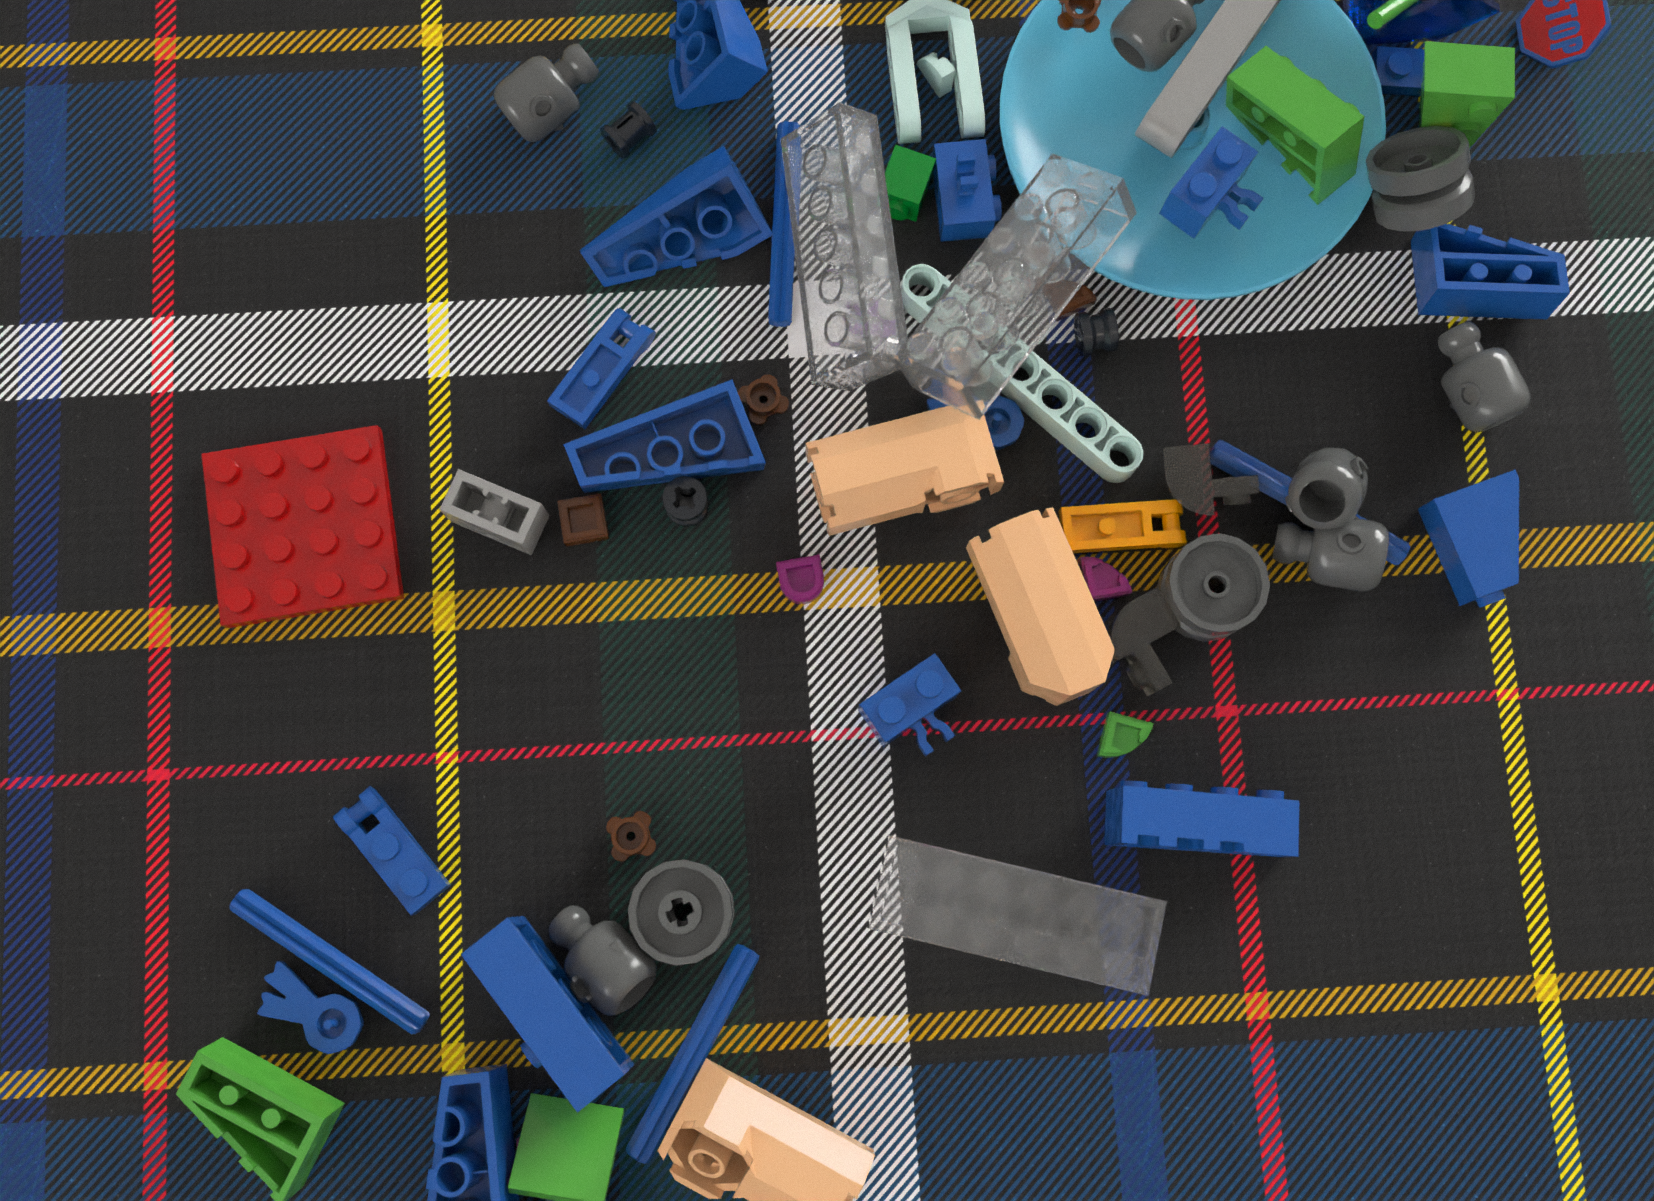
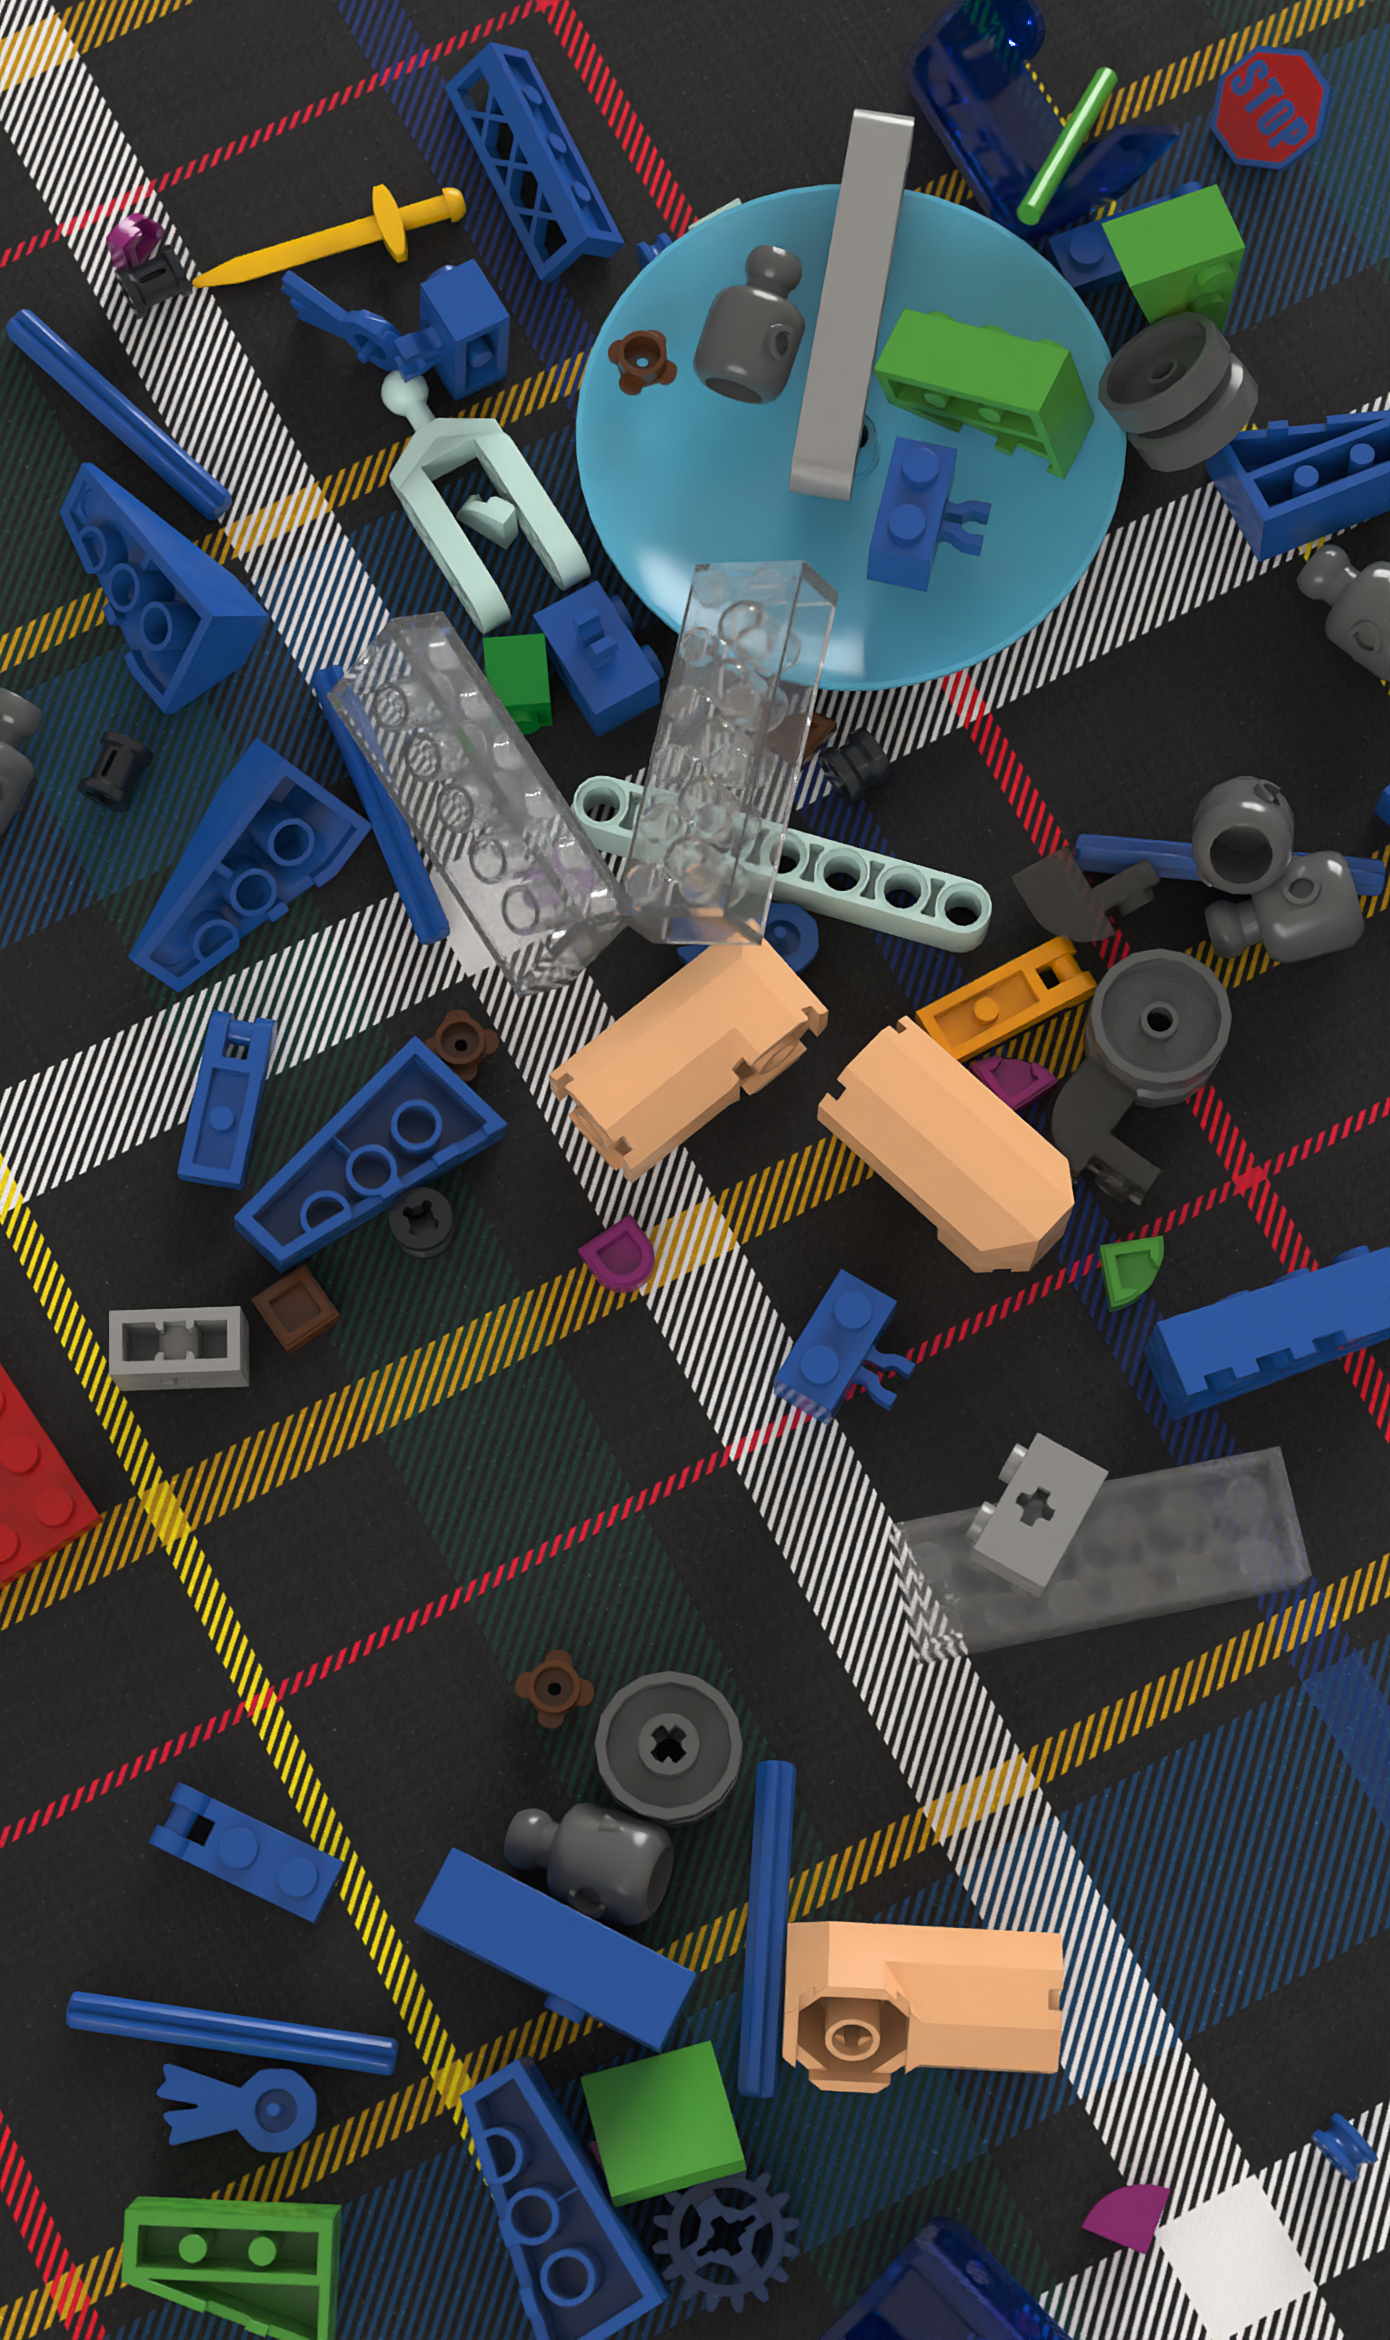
camera: 20 degrees left, 5 degrees down
(1013, 871) = (1027, 1553): none -> light grey brick

